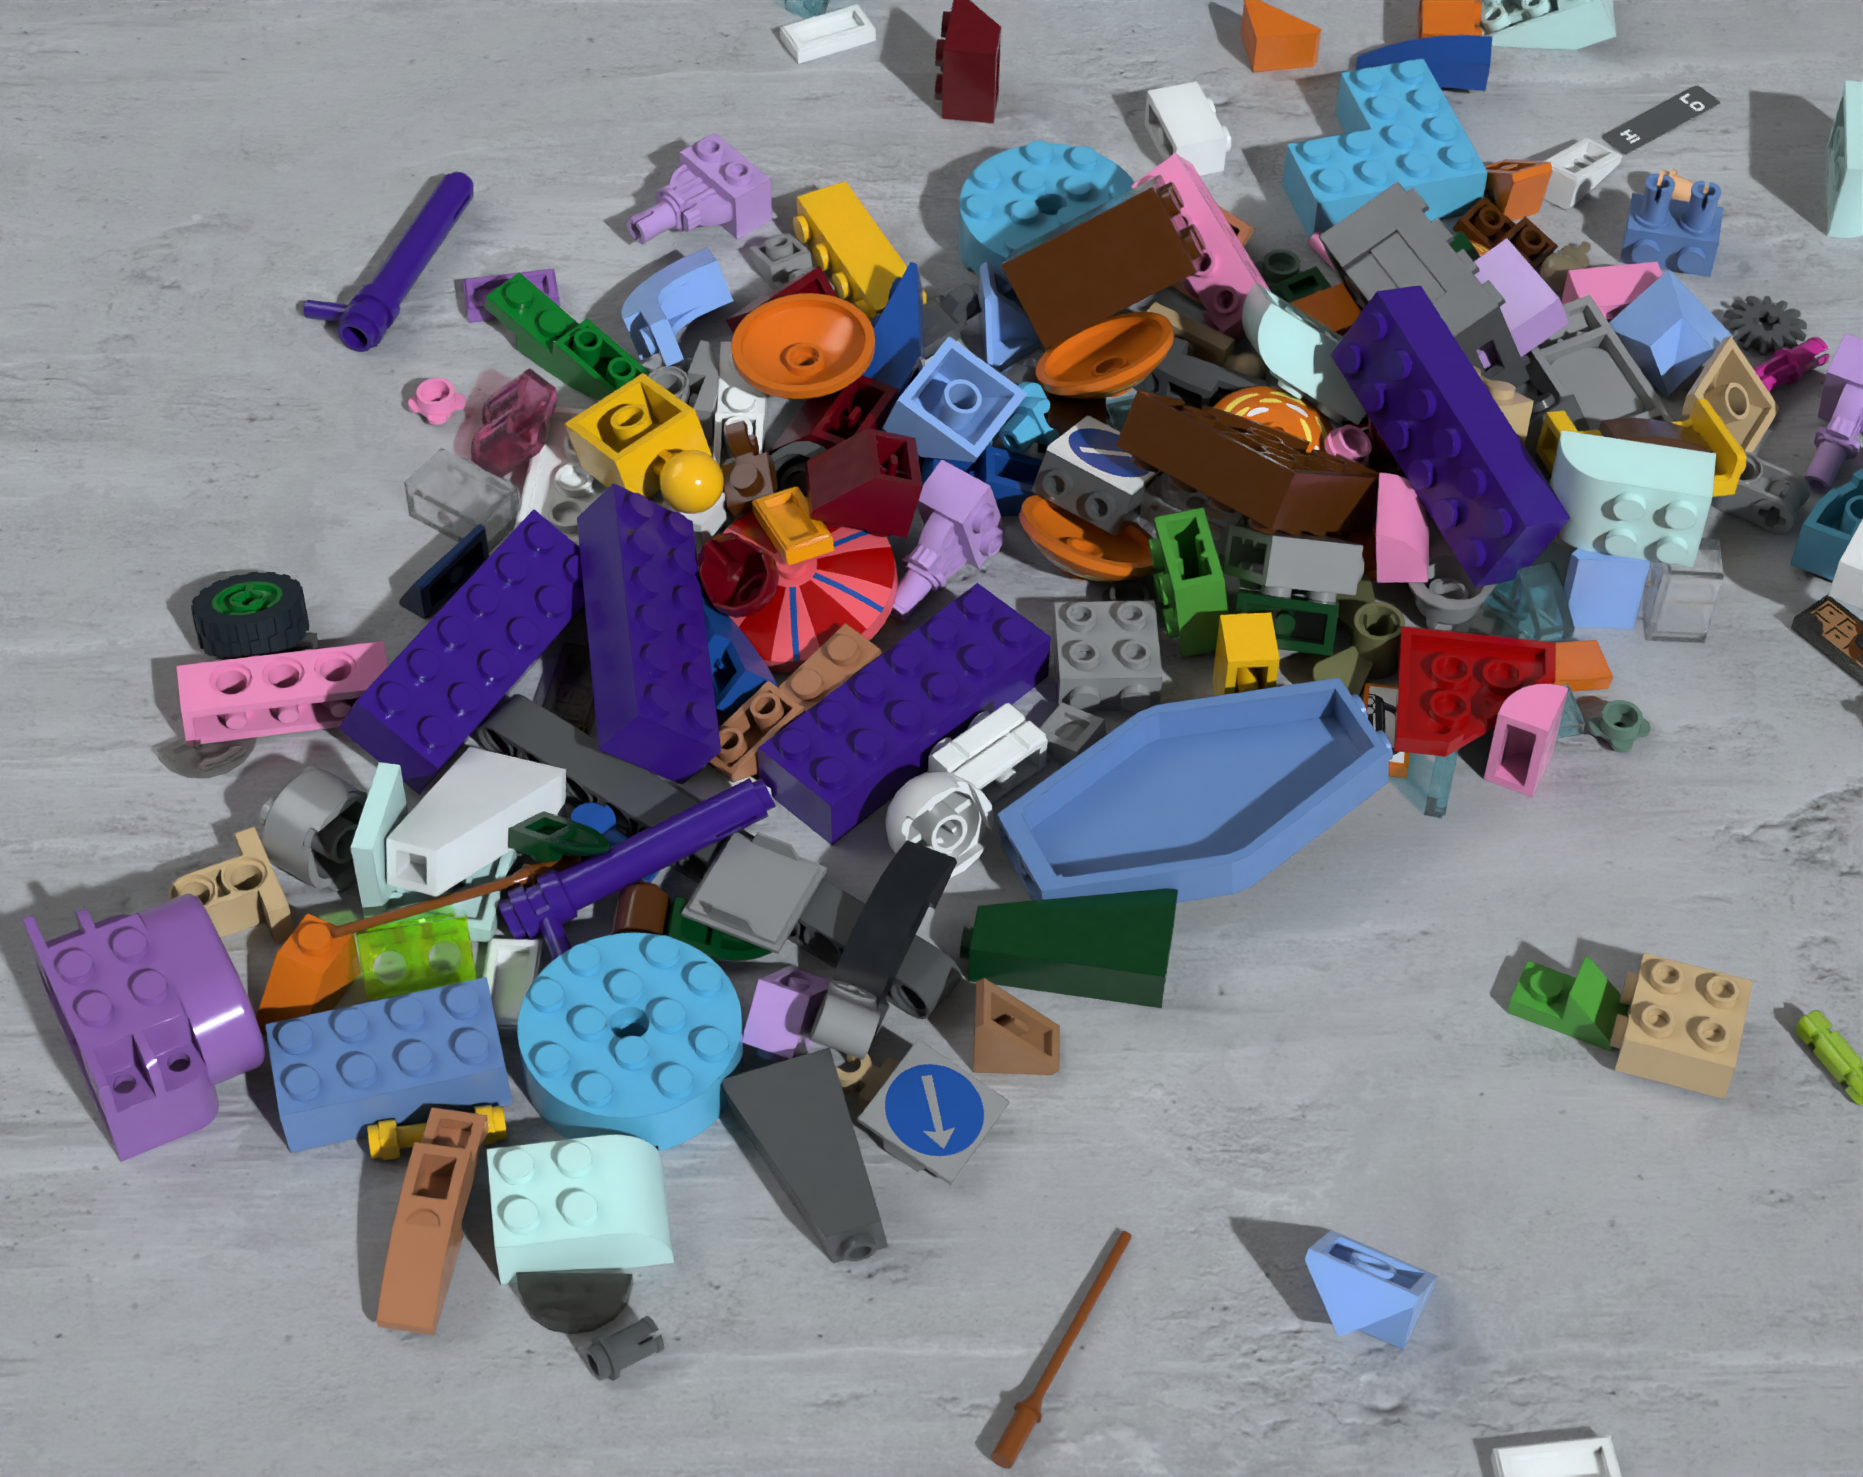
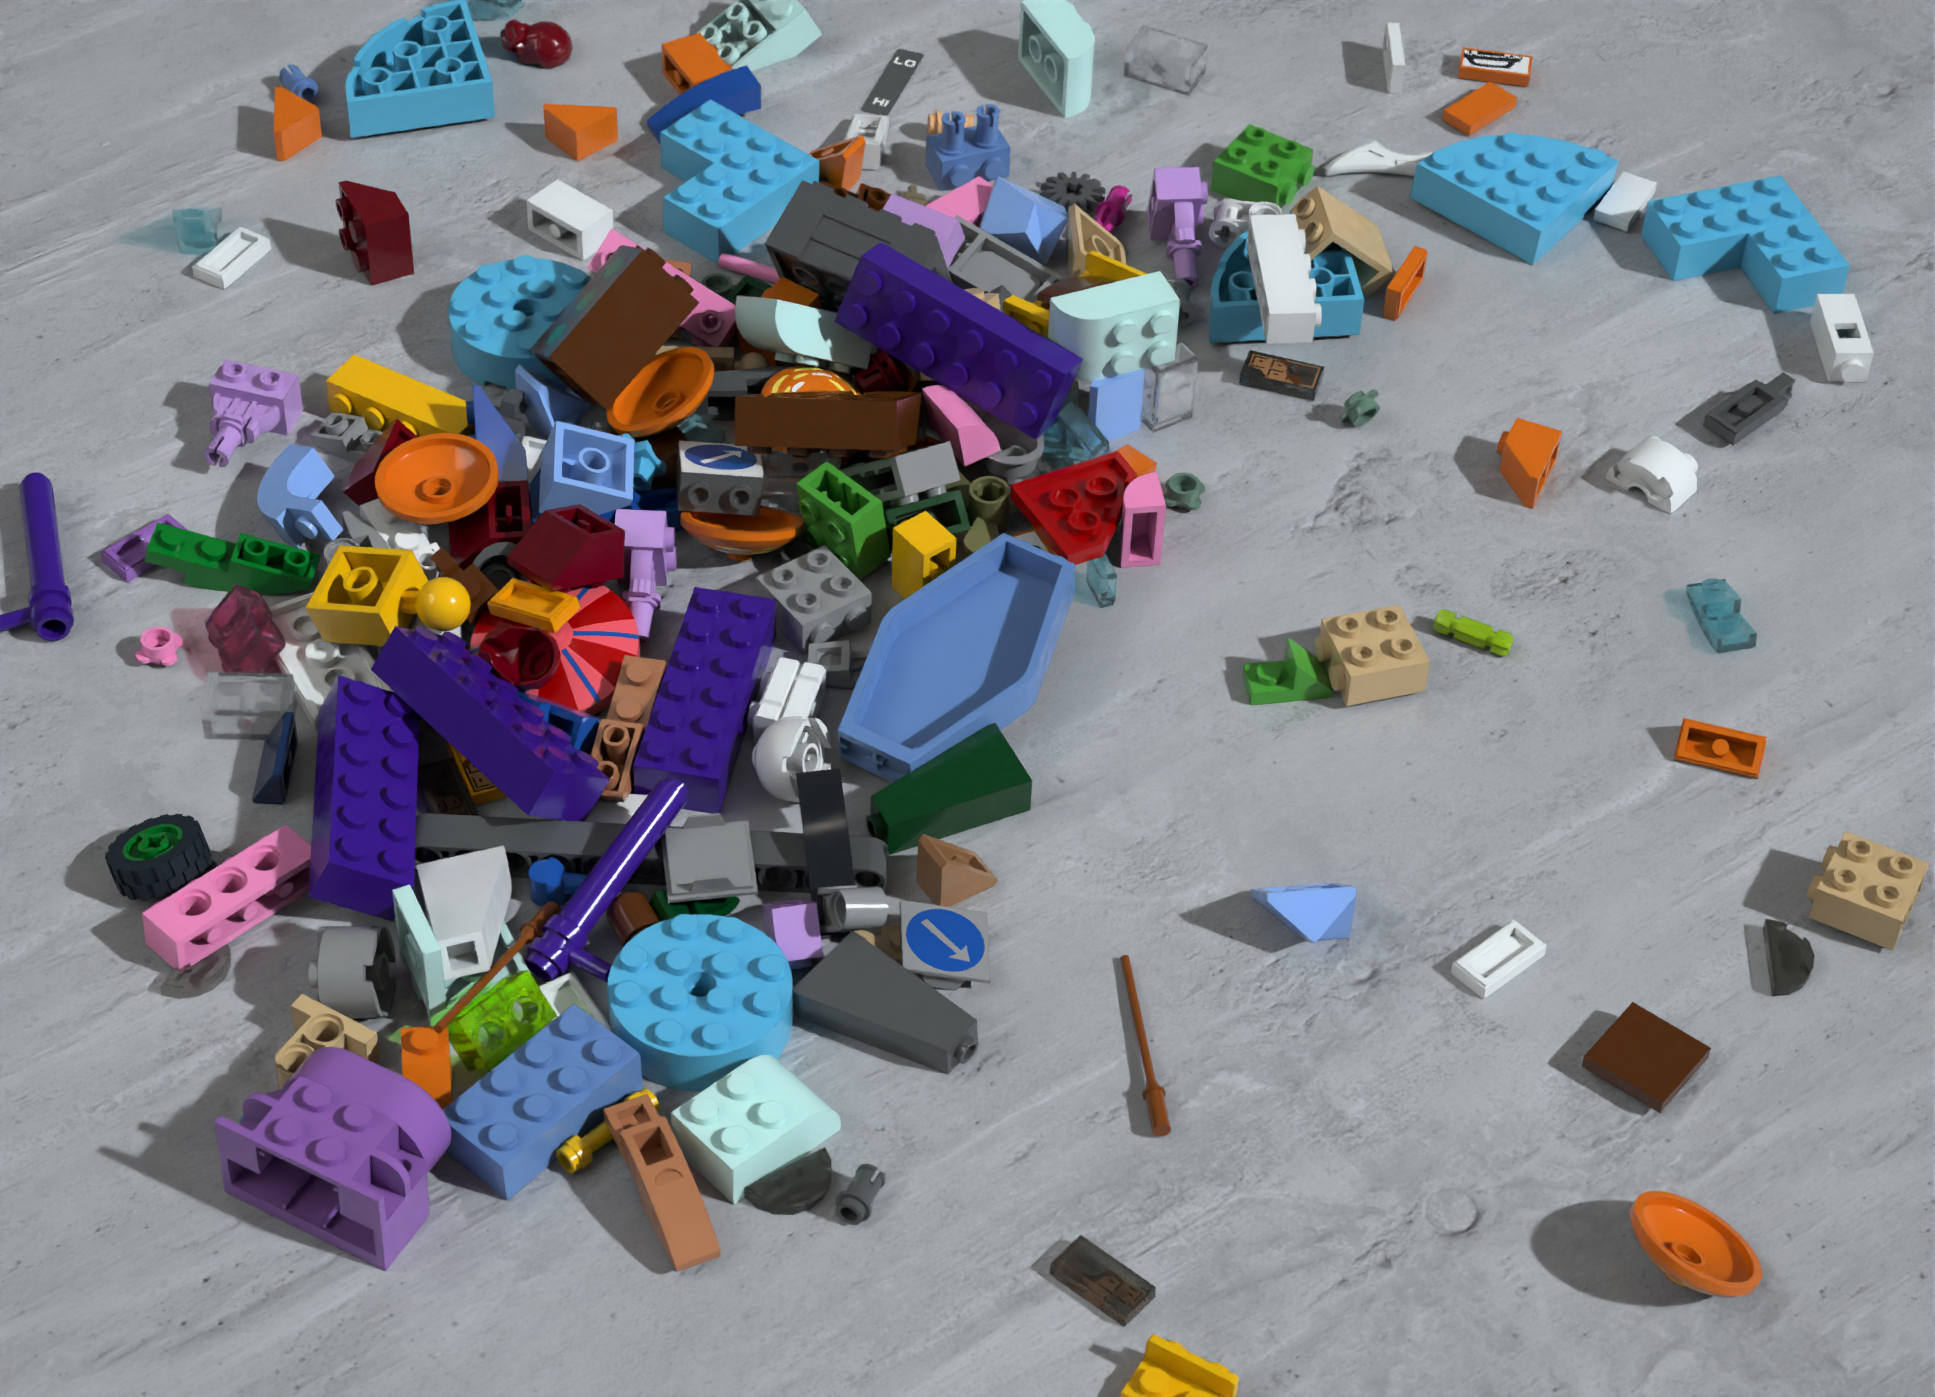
camera: 35 degrees left, 5 degrees down
(551, 836) = (533, 896): dark green plate -> none
(1349, 442) = (871, 381): bright pink plate -> none

